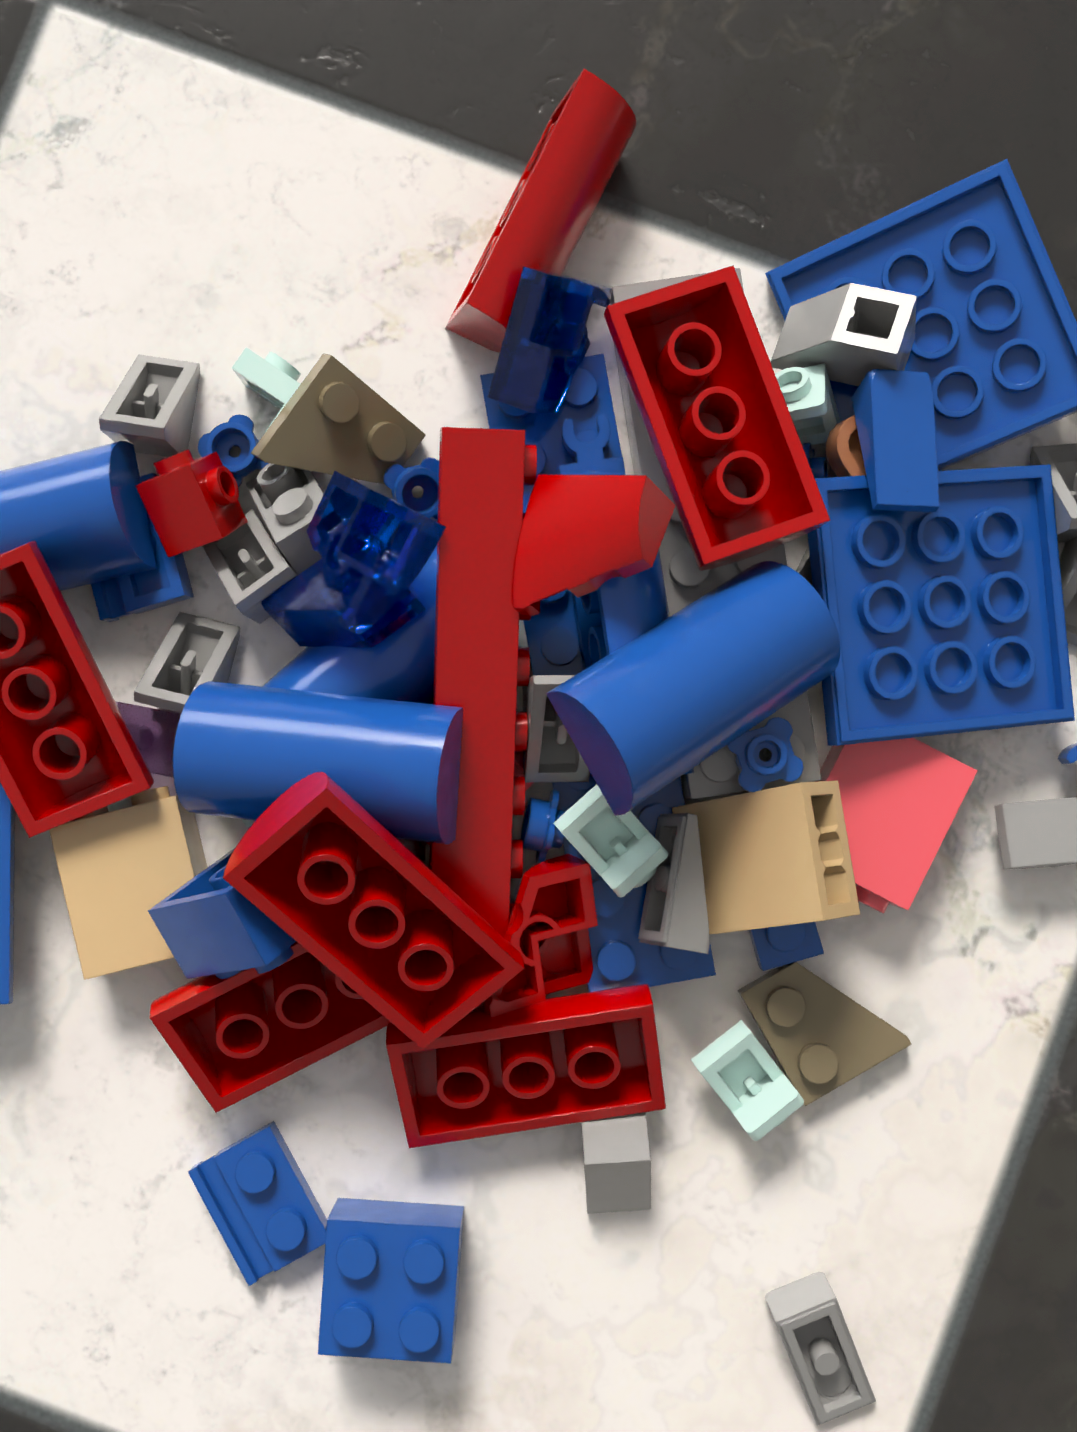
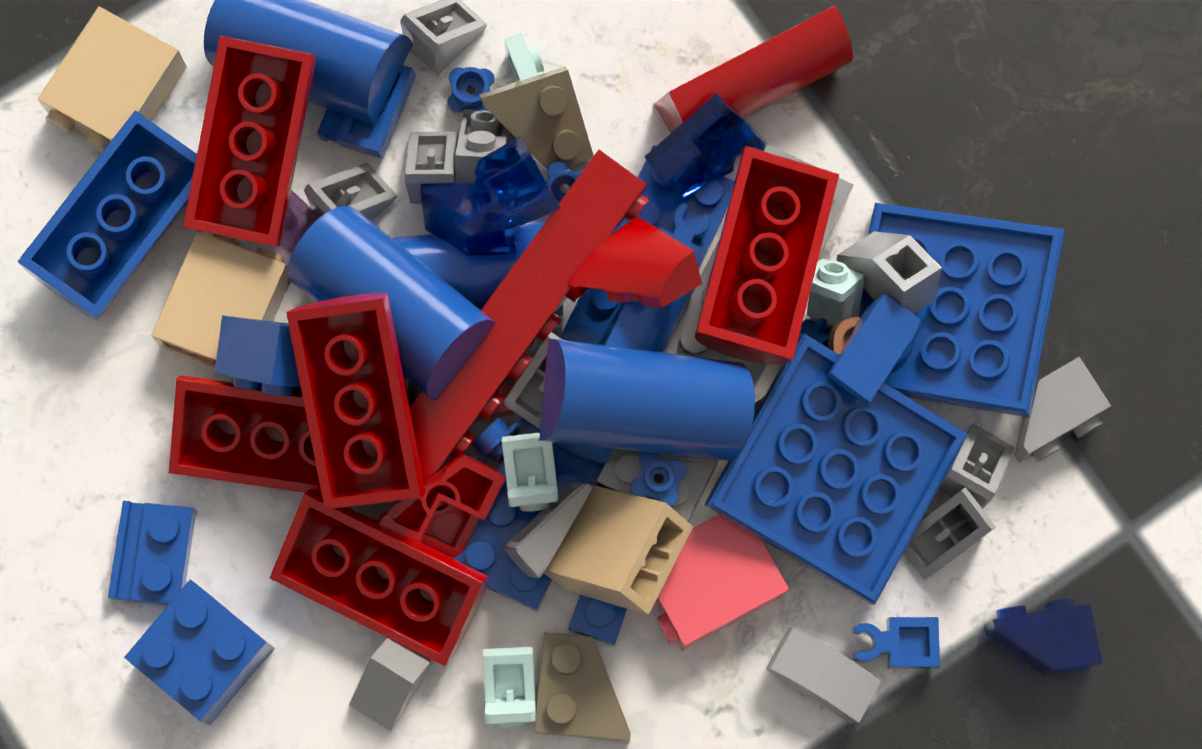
camera: 30 degrees right, 10 degrees down
(191, 501) = (423, 99): red brick -> none

